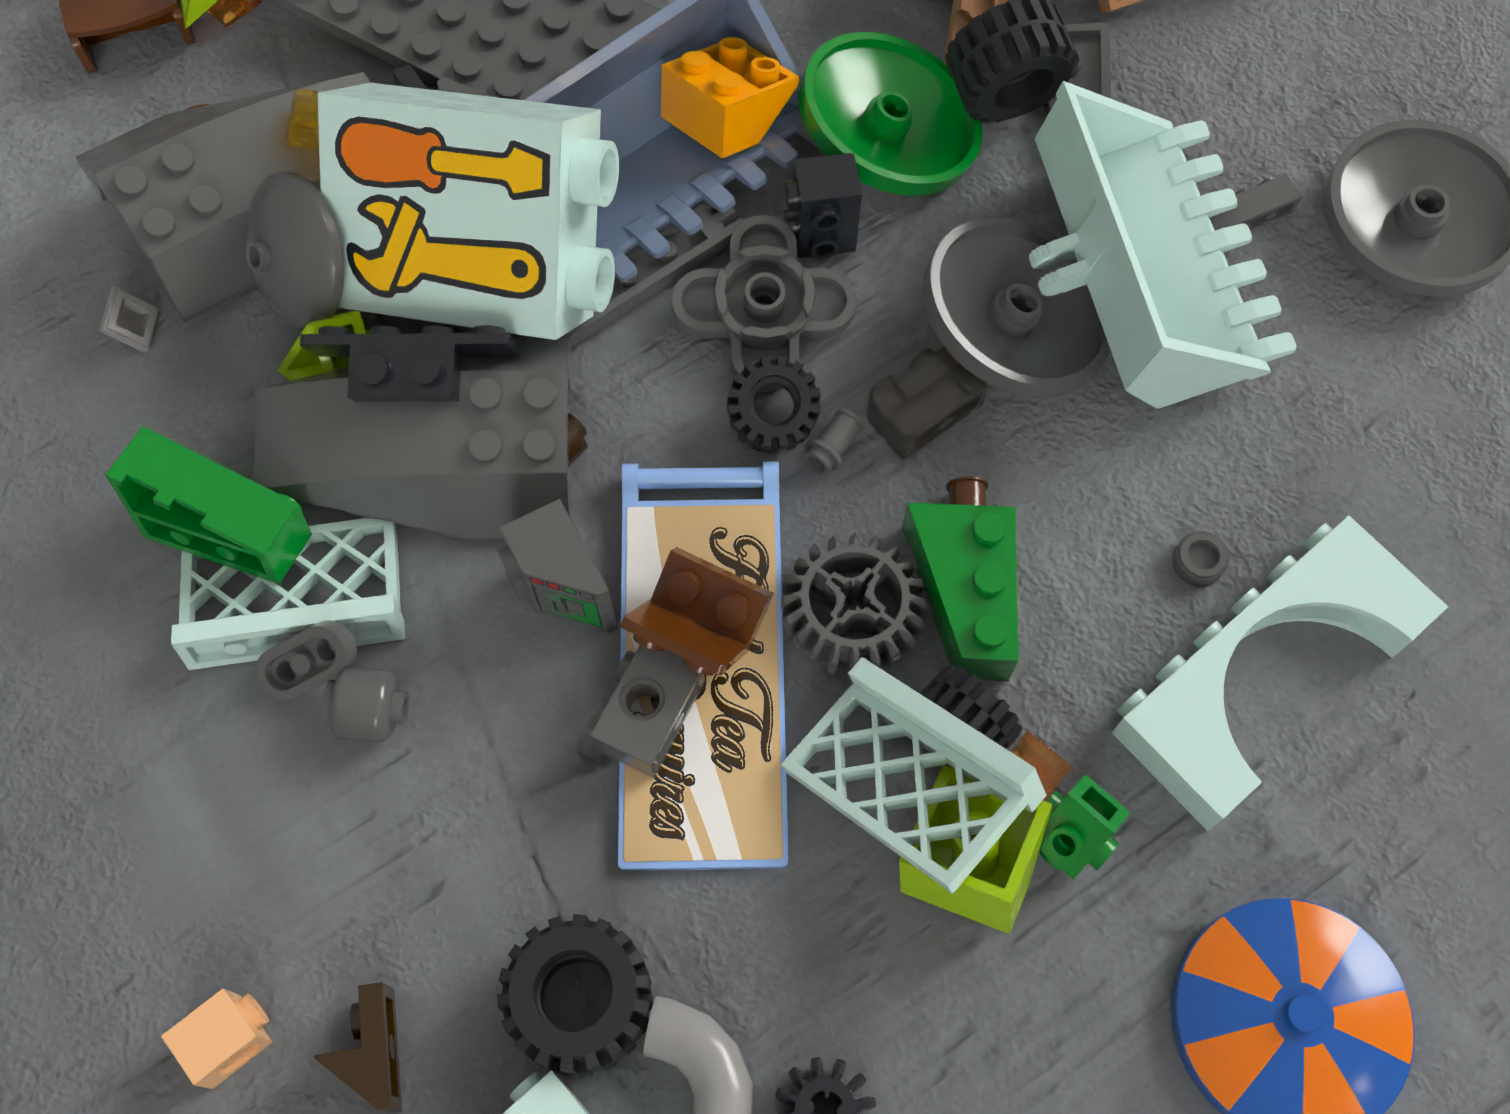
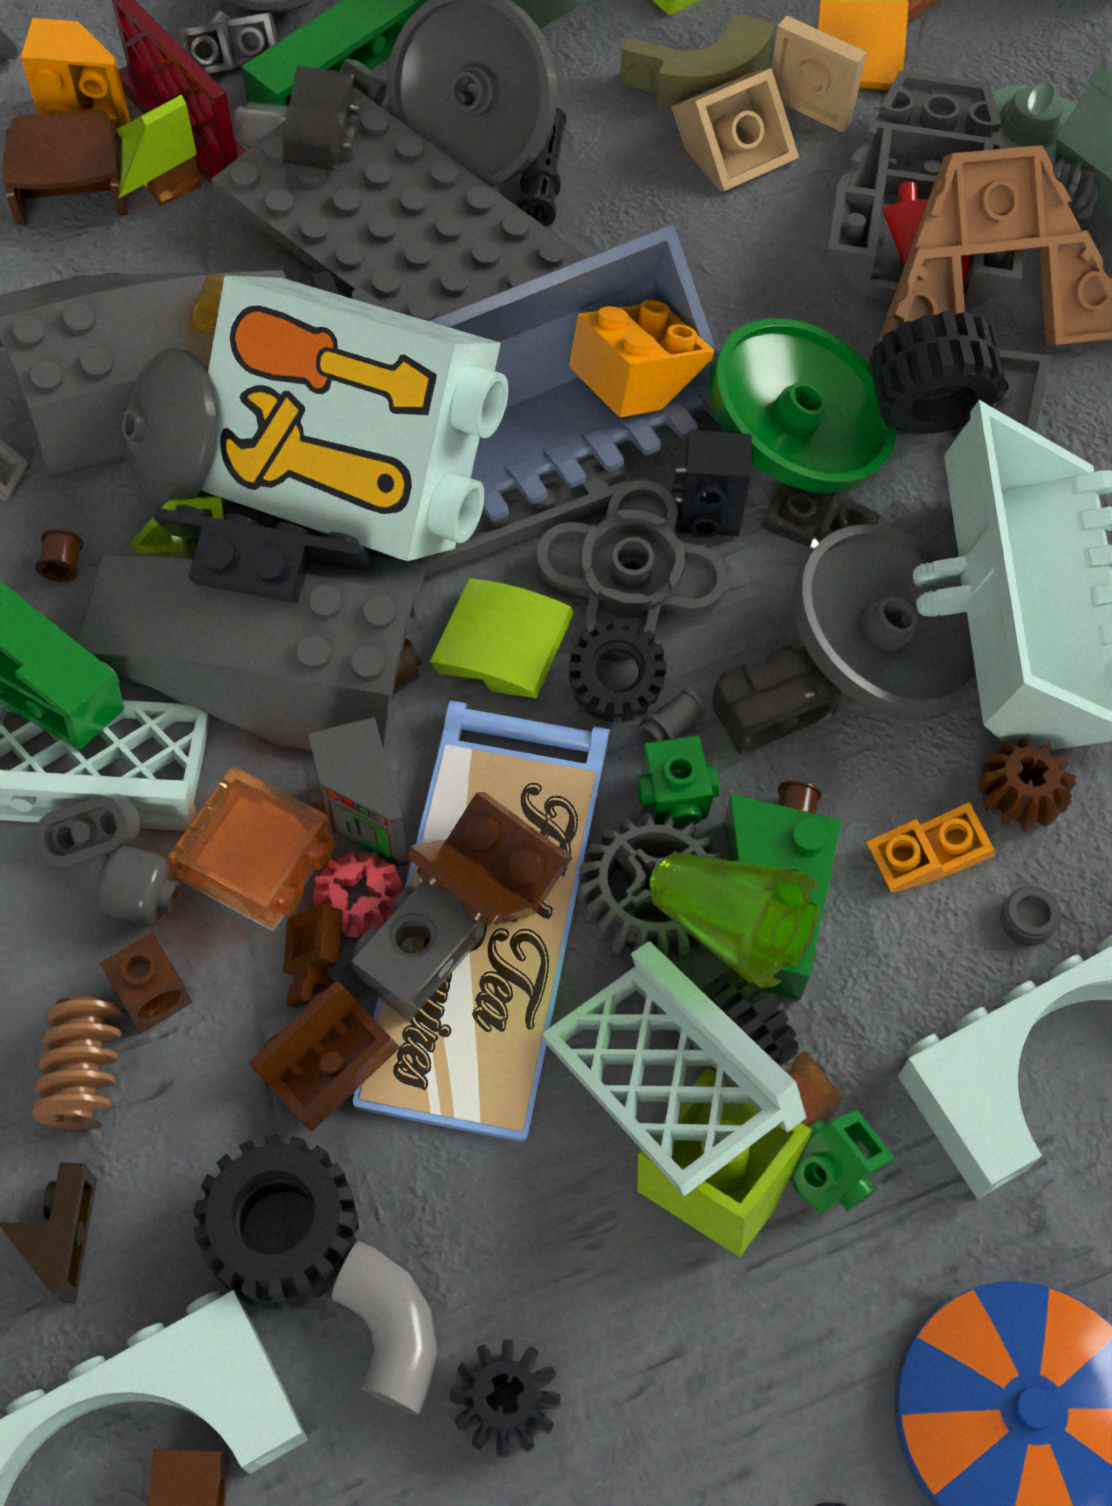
camera: 10 degrees right, 5 degrees down
(212, 396) = (59, 555): none -> reddish brown axle
(348, 885) = (74, 1062): none -> medium nougat piece
(397, 795) = (146, 982): none -> reddish brown brick
(469, 645) = (253, 848): none -> clear orange piece
(545, 731) = (310, 949): none -> reddish brown plate
(582, 829) = (323, 1055): none -> reddish brown bracket
(592, 683) = (367, 912): none -> coral gear
(657, 393) = (502, 637): none -> lime slope
(853, 499) = (677, 781): none -> green brick
(922, 222) = (810, 519): none -> clear smoke slope
(942, 614) = (739, 911): none -> clear neon green cone
(1097, 515) = (931, 850): none -> light orange slope
(1165, 418) = (1045, 789): none -> reddish brown gear

